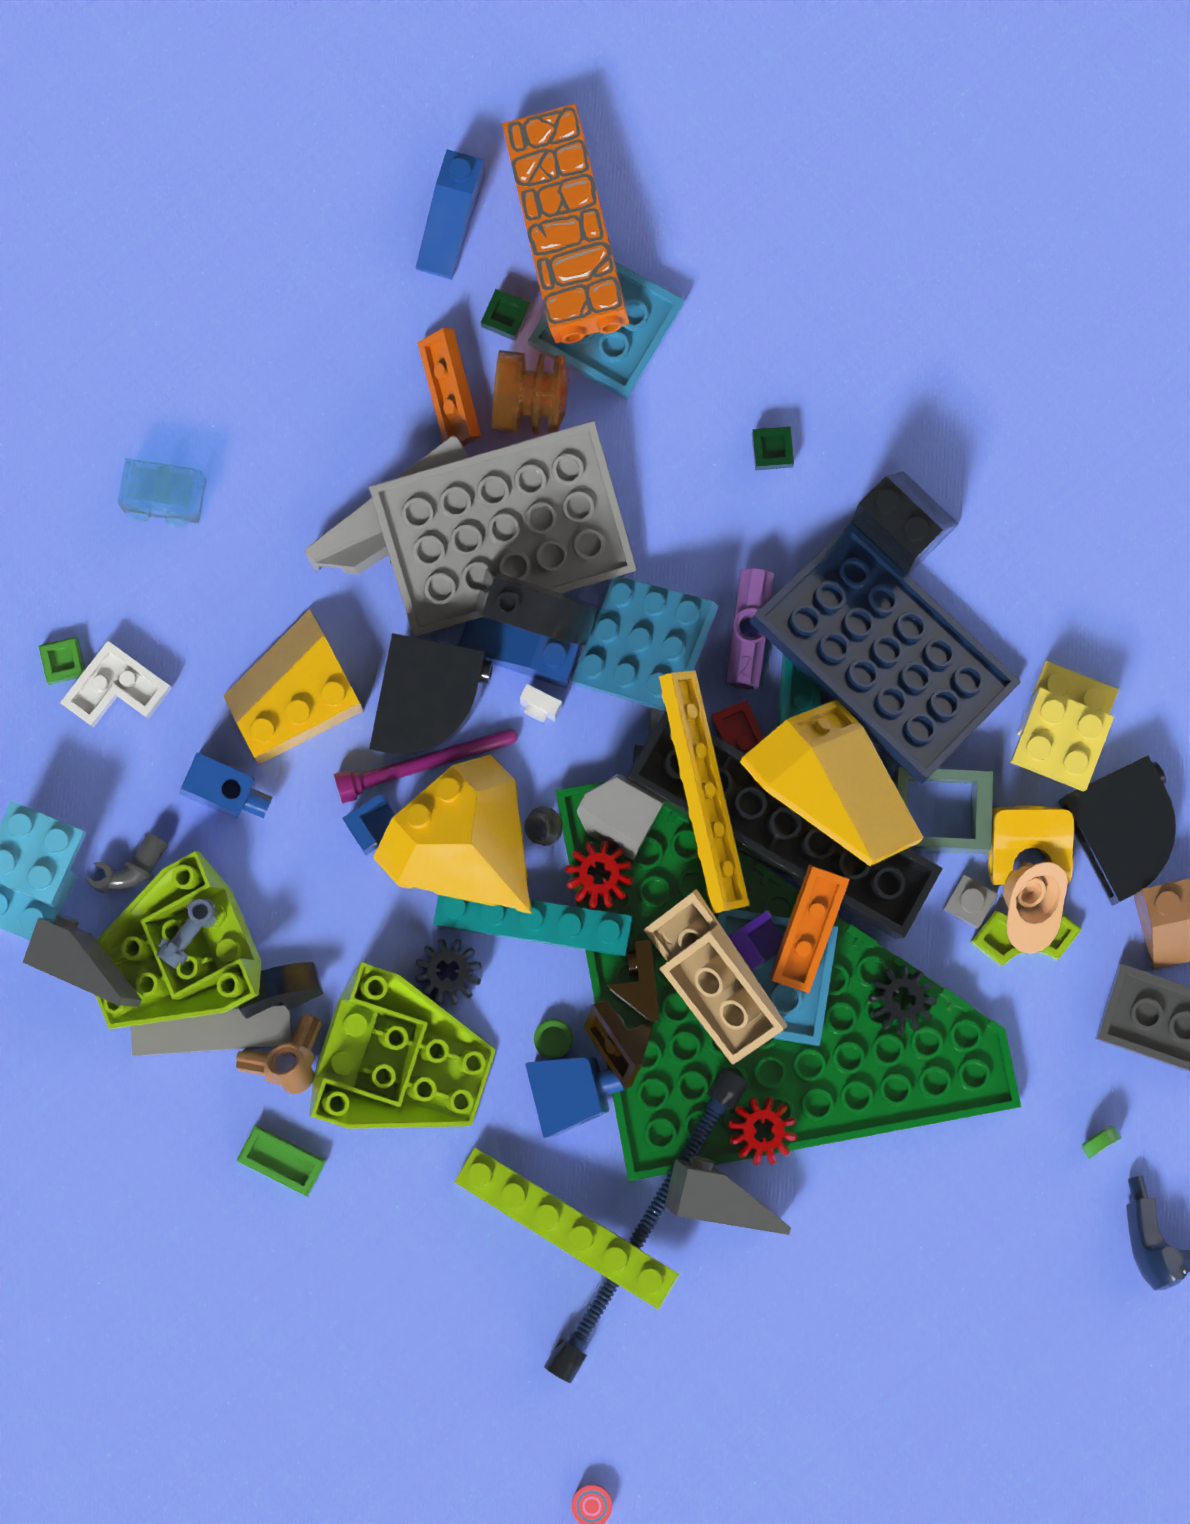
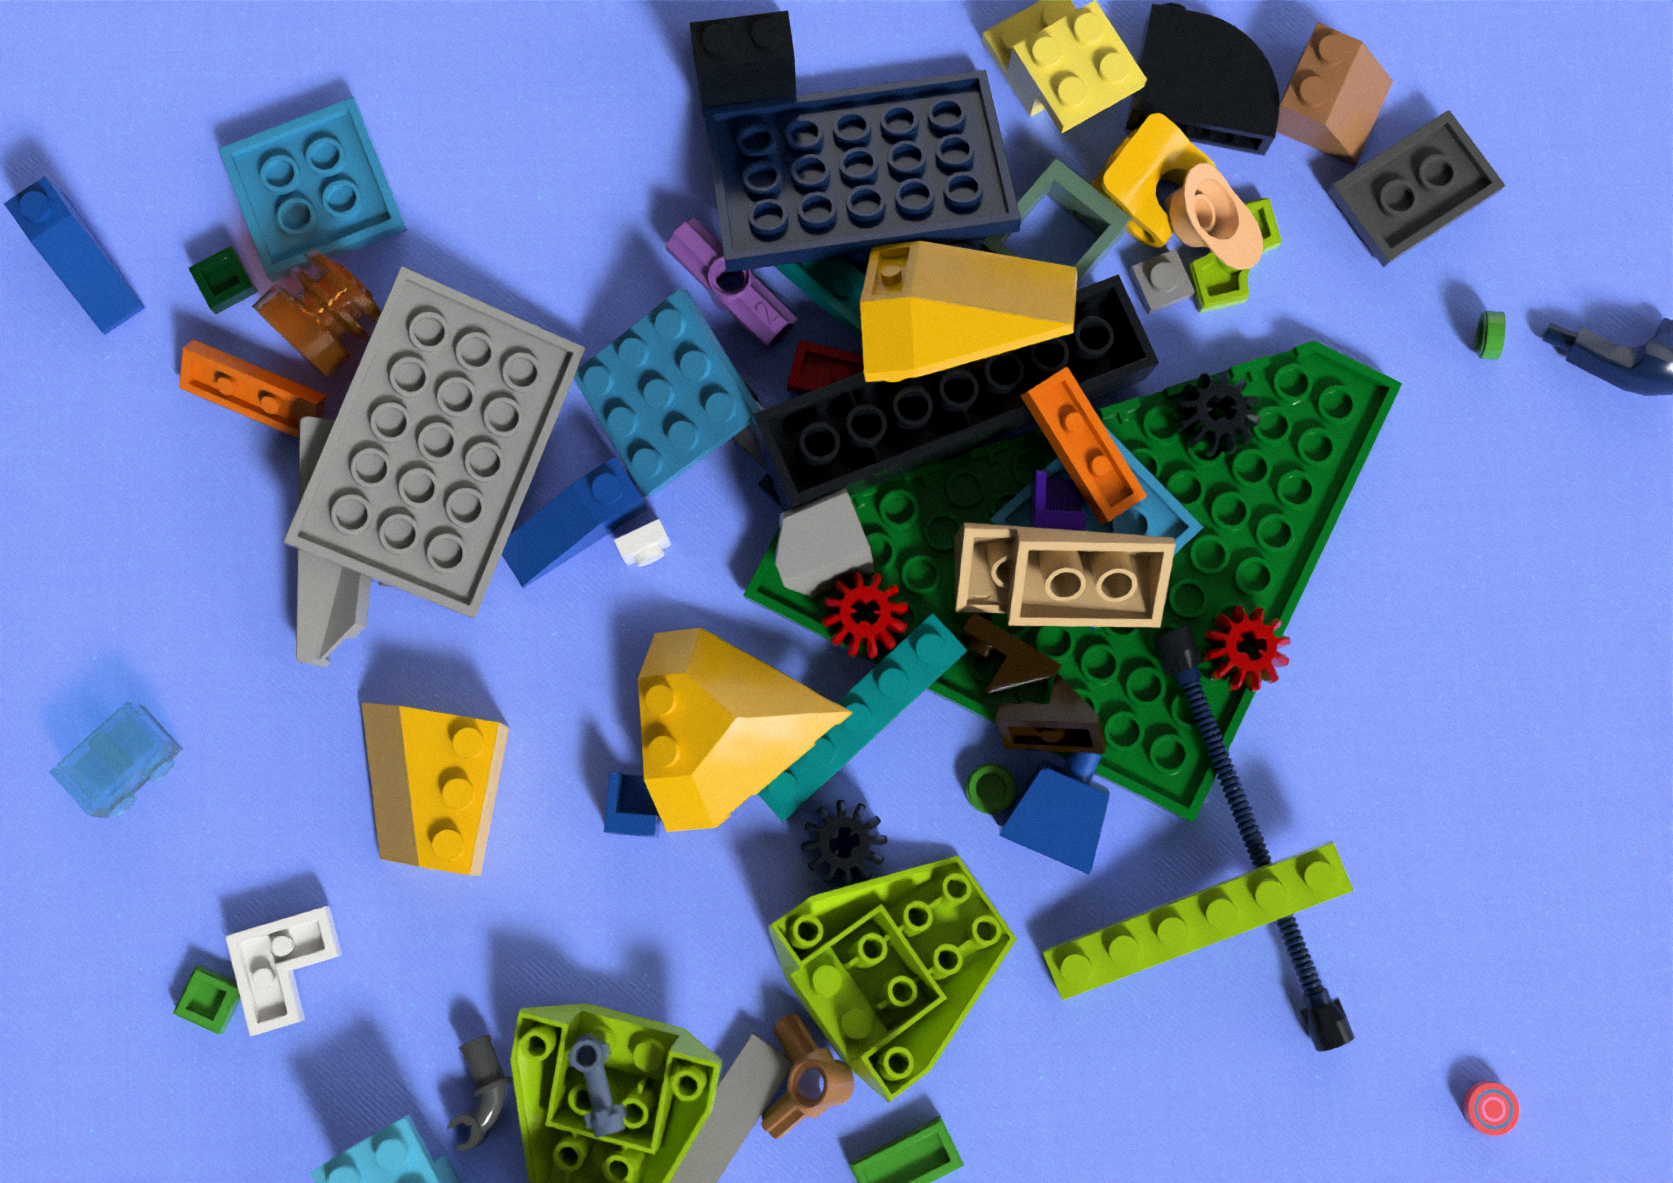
camera: 50 degrees left, 0 degrees up
(207, 778) = (456, 947): blue torso -> none
(288, 984) = (729, 1020): black slope -> none
(352, 784) = (576, 794): magenta piece -> none
(426, 694) = (543, 647): black brick -> none
(535, 608) = (542, 471): black brick -> none
(536, 829) = (767, 645): clear smoke plate -> none
(565, 224) = (180, 147): orange brick -> none
(703, 791) = (867, 439): yellow plate -> none
(708, 1195) = (1274, 752): dark grey slope -> none
(772, 448) = (569, 127): dark green plate -> none

